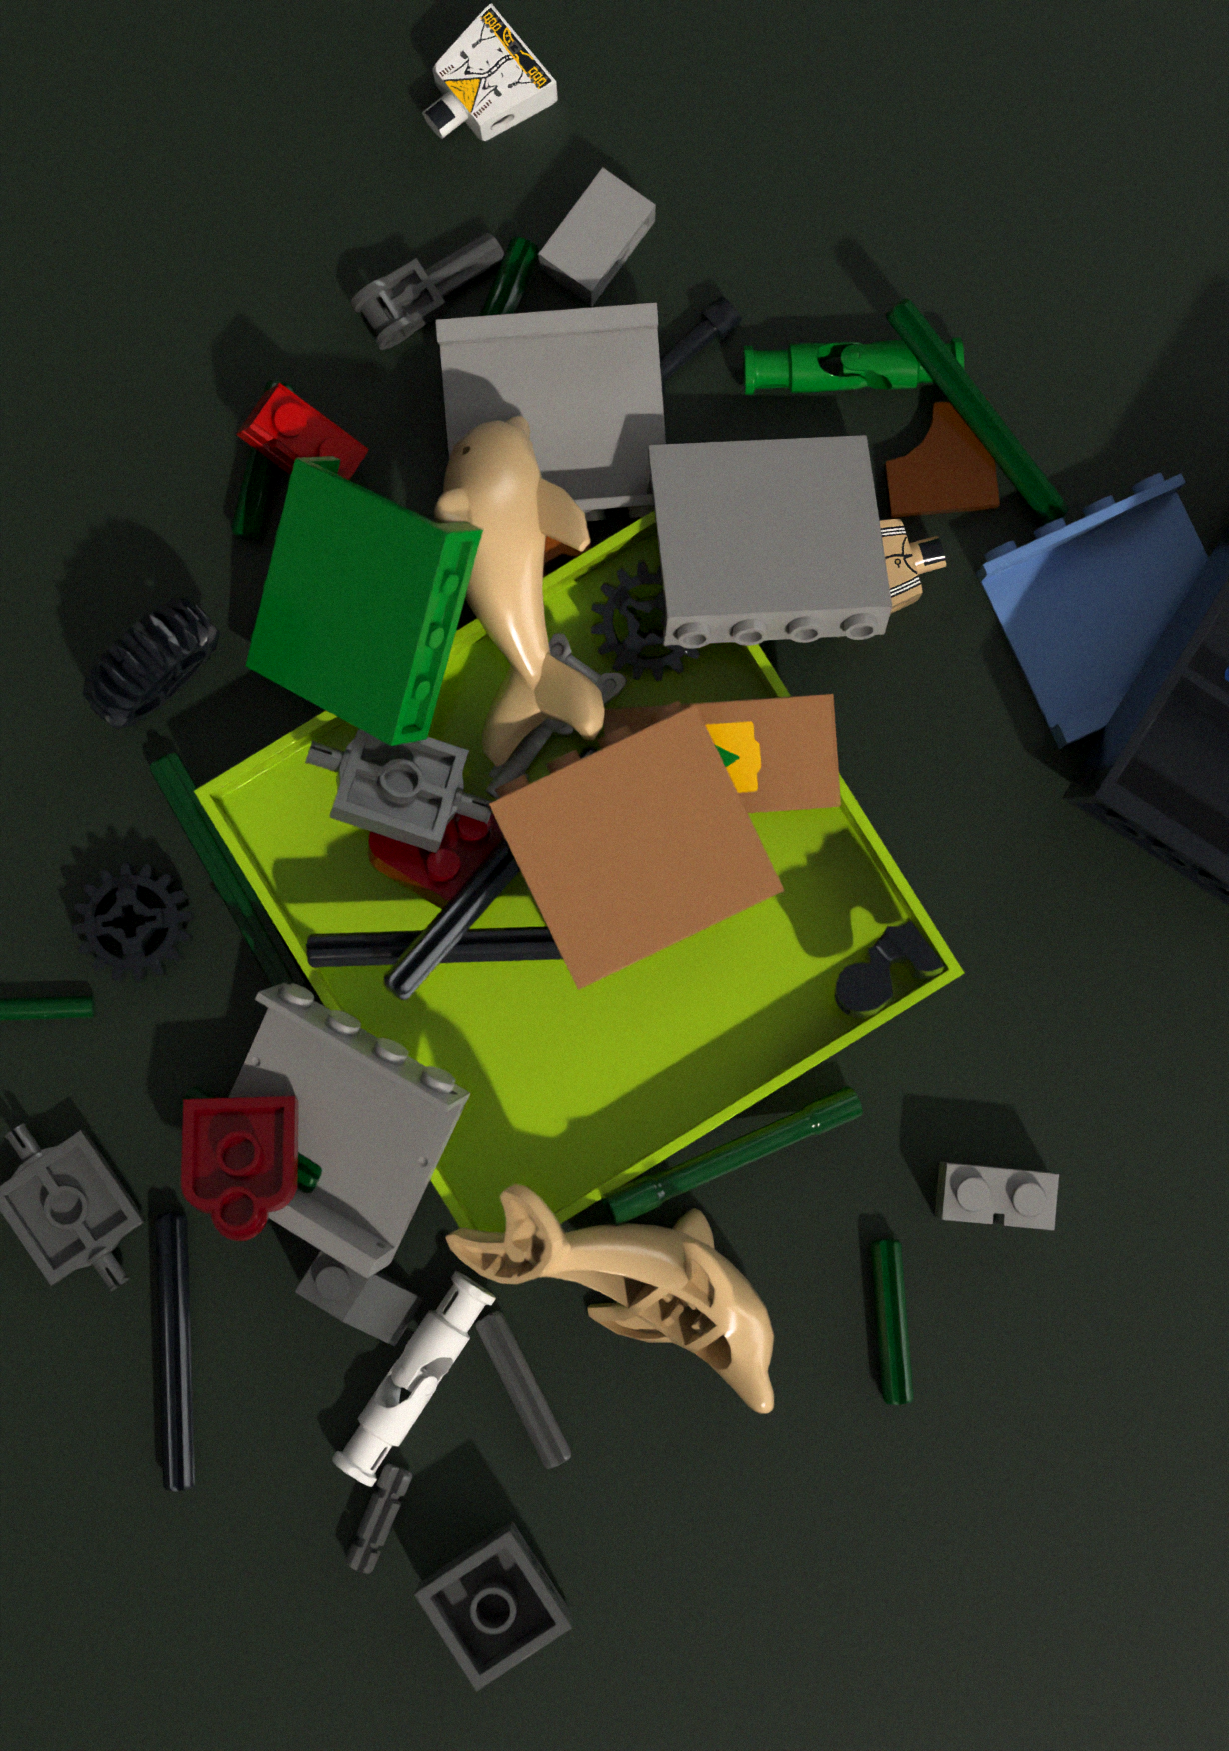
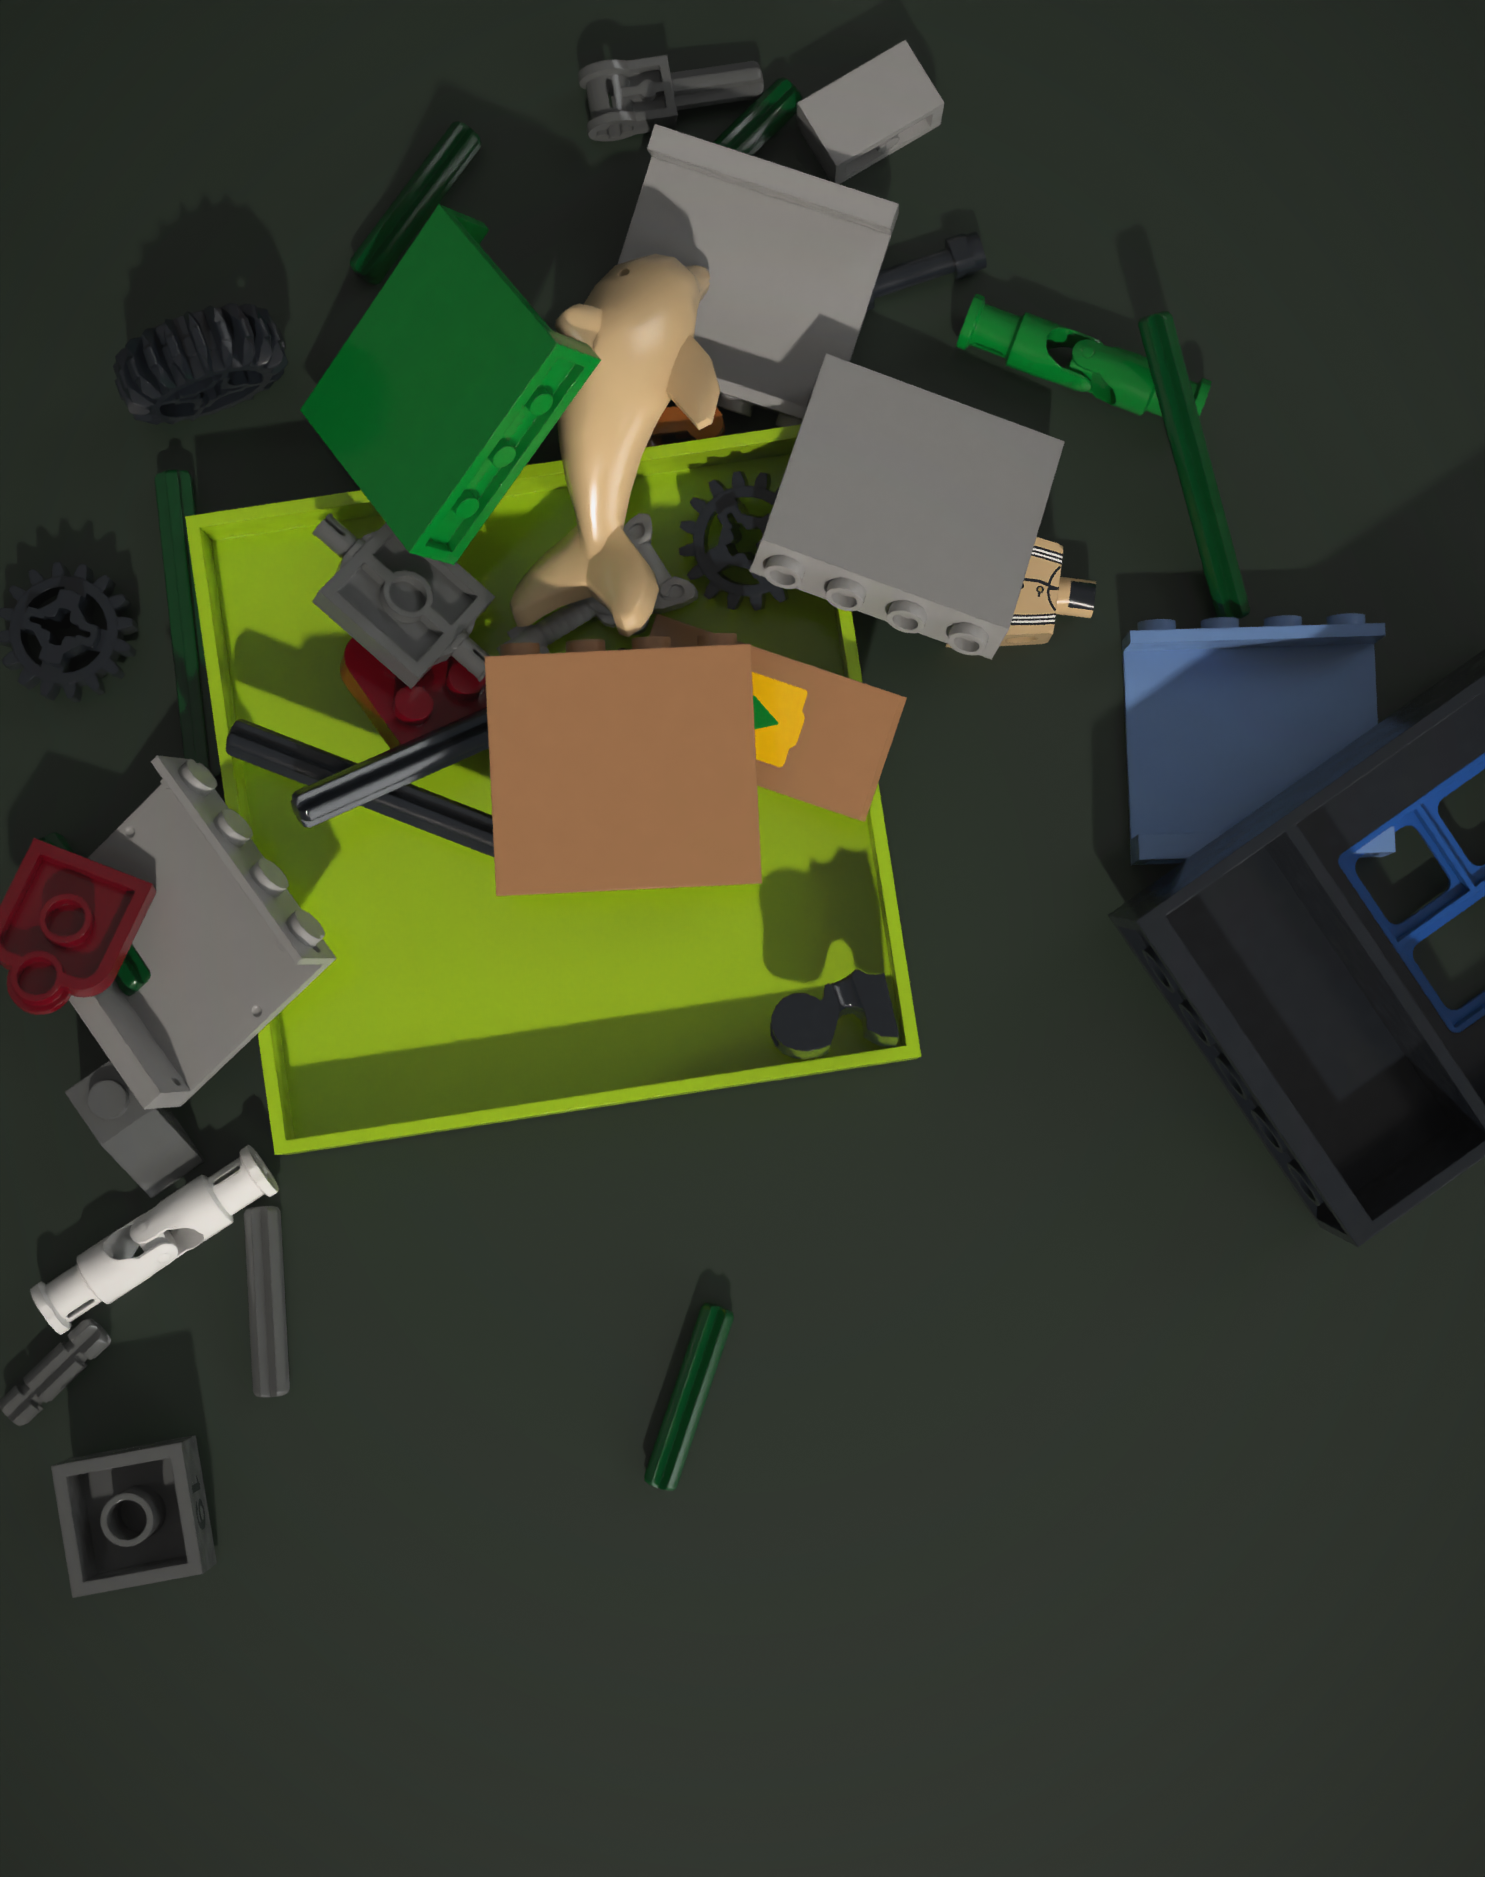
camera: 20 degrees right, 0 degrees up
(290, 428) = (456, 176): red brick -> none
(651, 1191) = (488, 1146): dark green piece -> none
(664, 1278) = (460, 1245): tan animal -> none
(944, 472) = (1132, 518): reddish brown tile -> none
(979, 1191) = (877, 1317): light grey piece -> none

